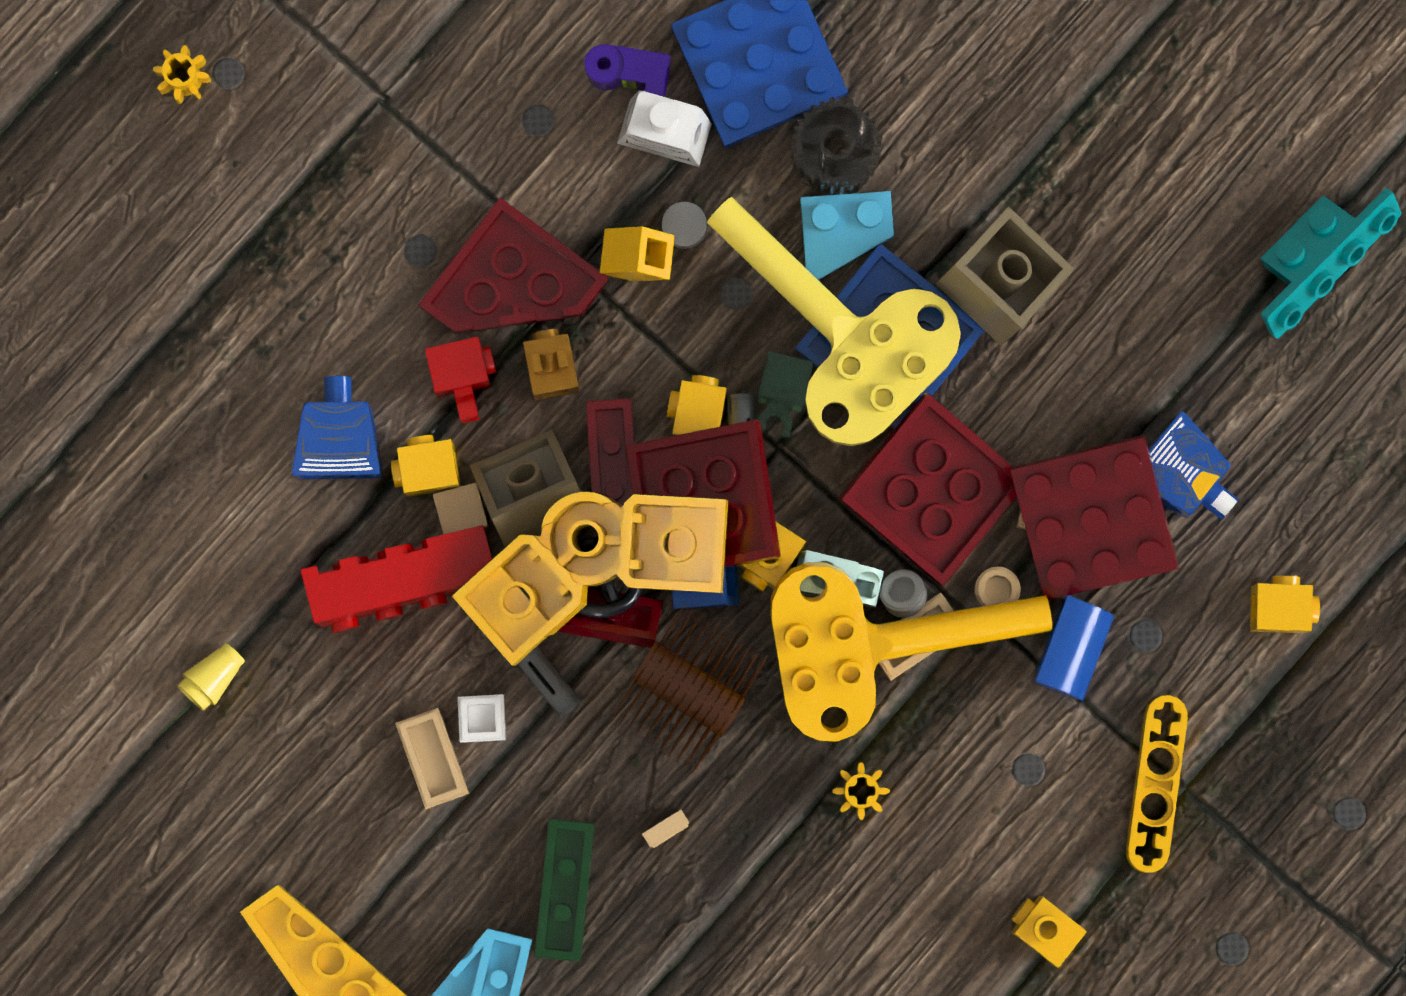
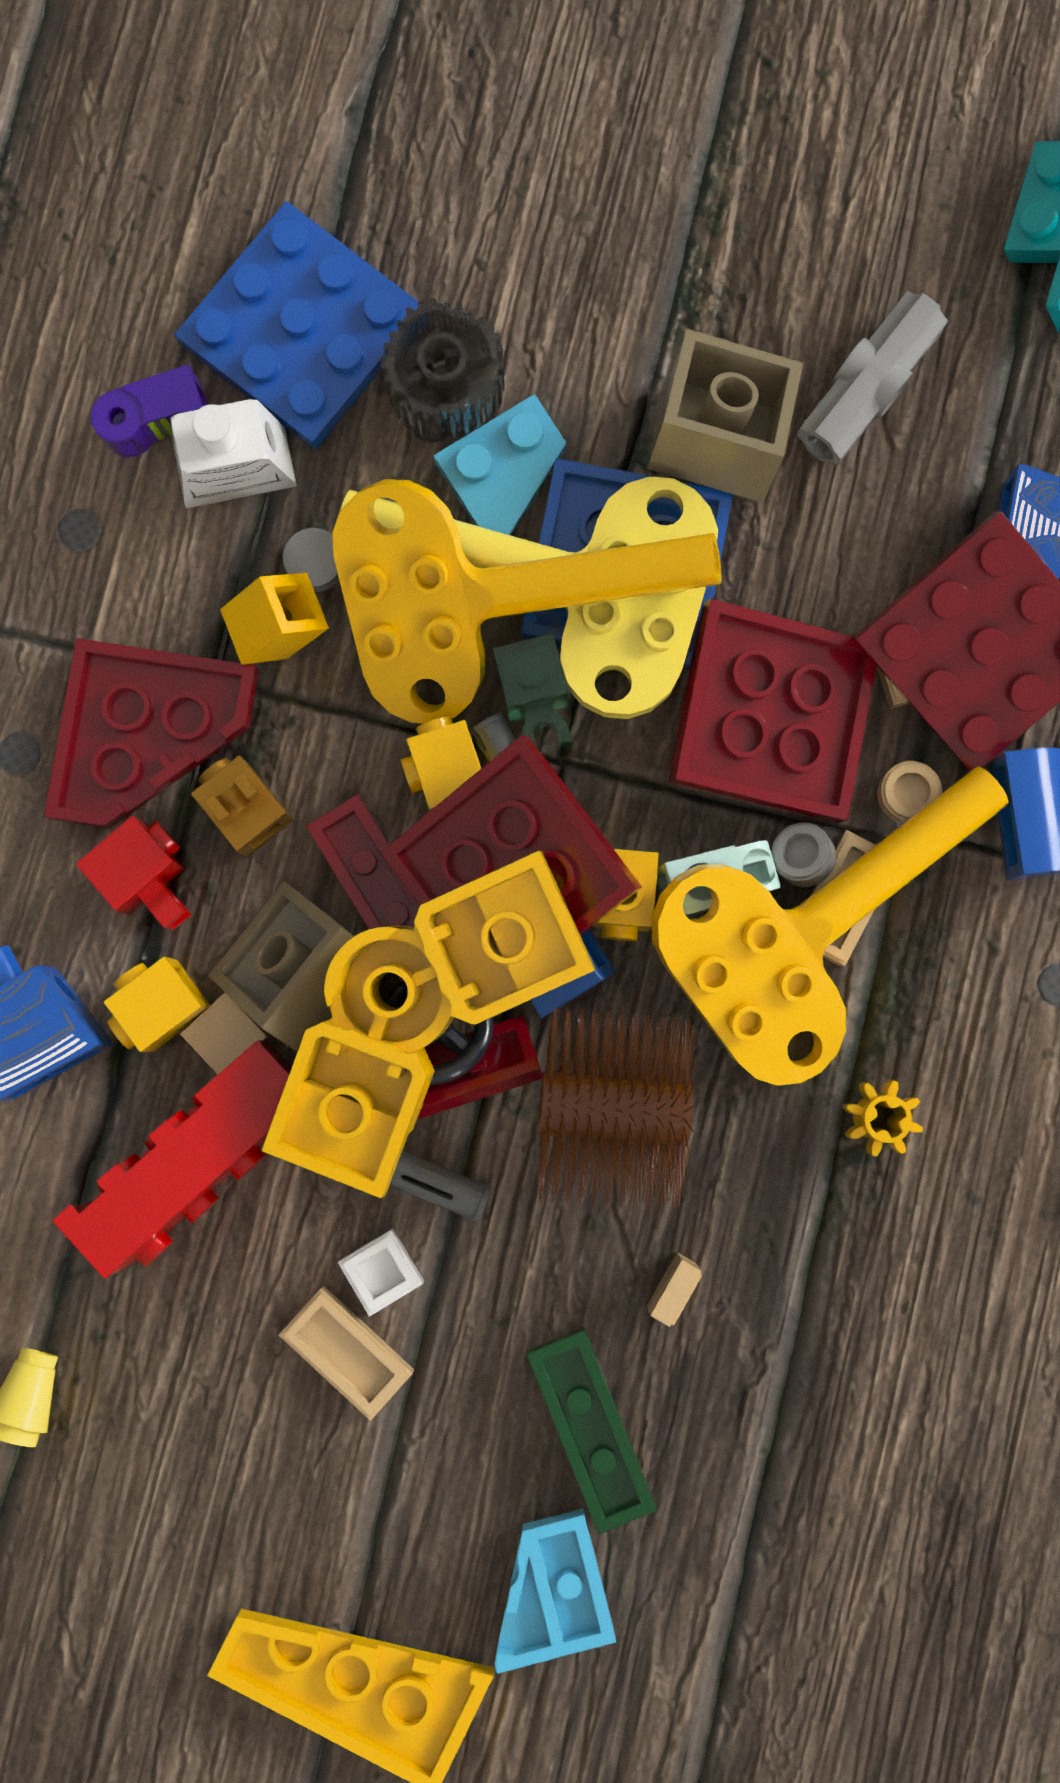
camera: 25 degrees left, 0 degrees up
(739, 297) = (423, 603): none -> yellow piece
(1122, 299) = (872, 377): none -> light grey piece

